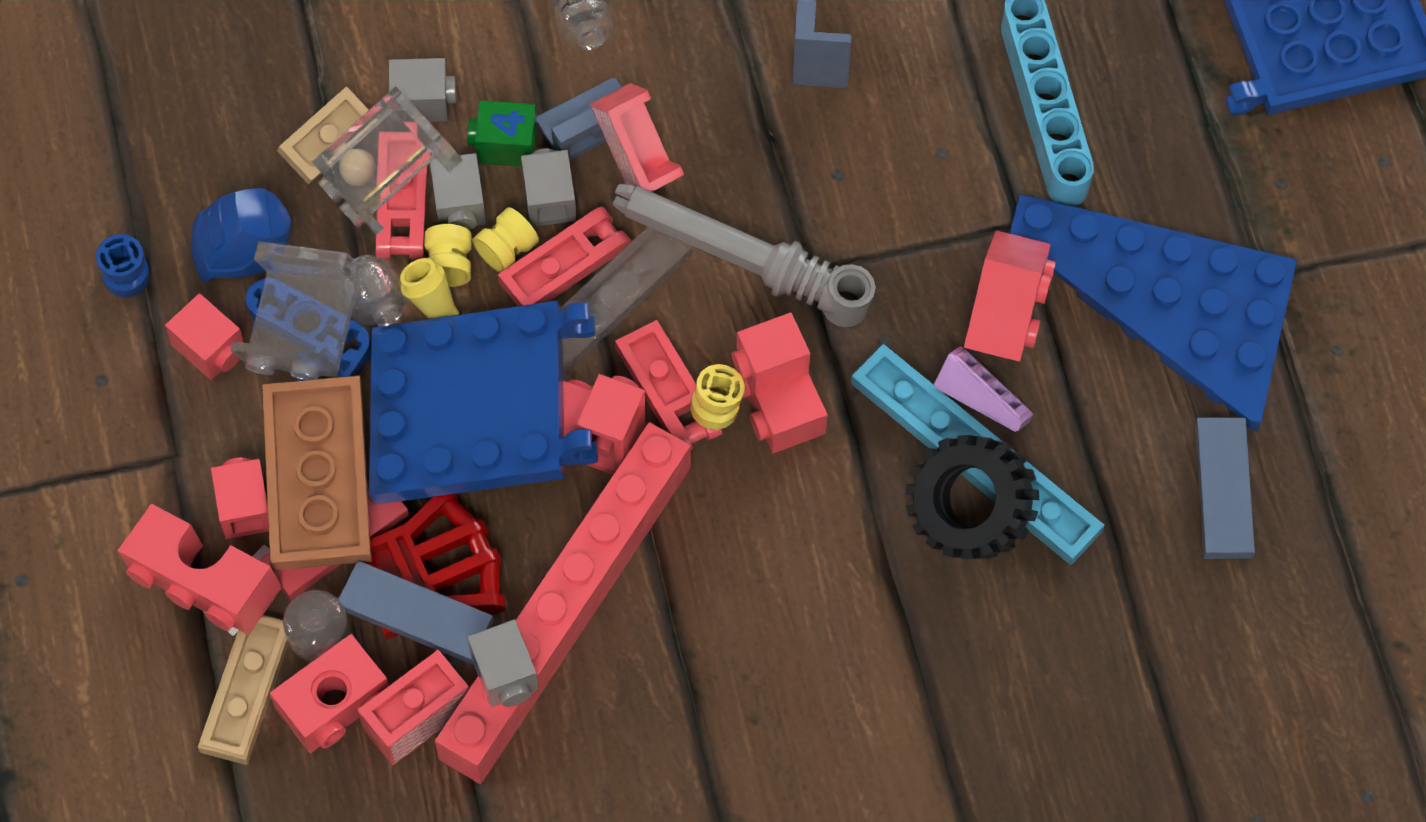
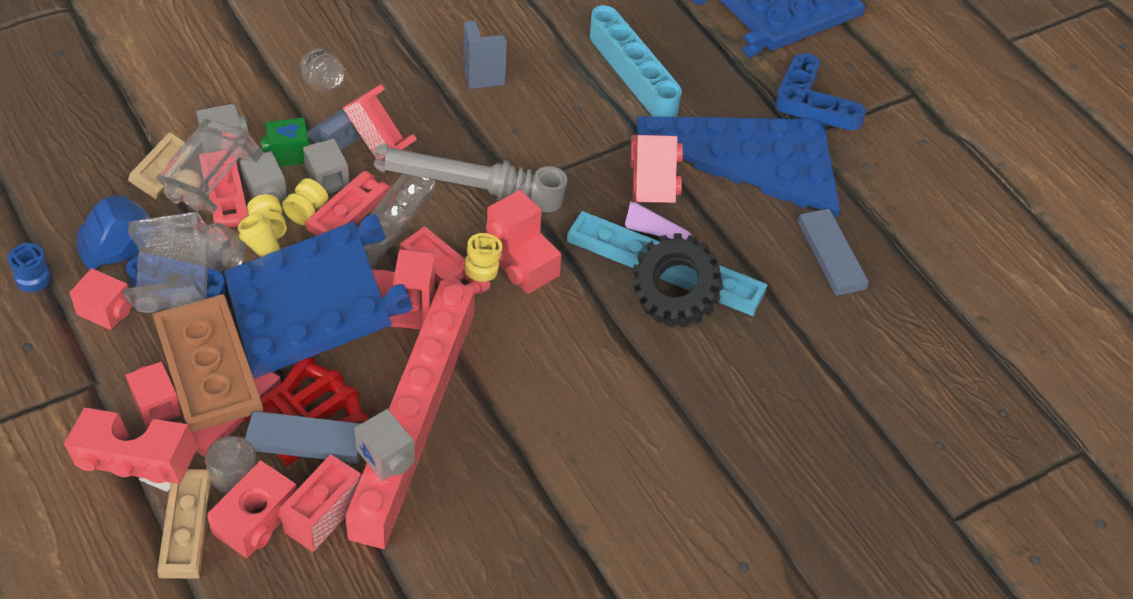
camera: 20 degrees left, 15 degrees down
(1281, 208) = (803, 102): none -> blue beam

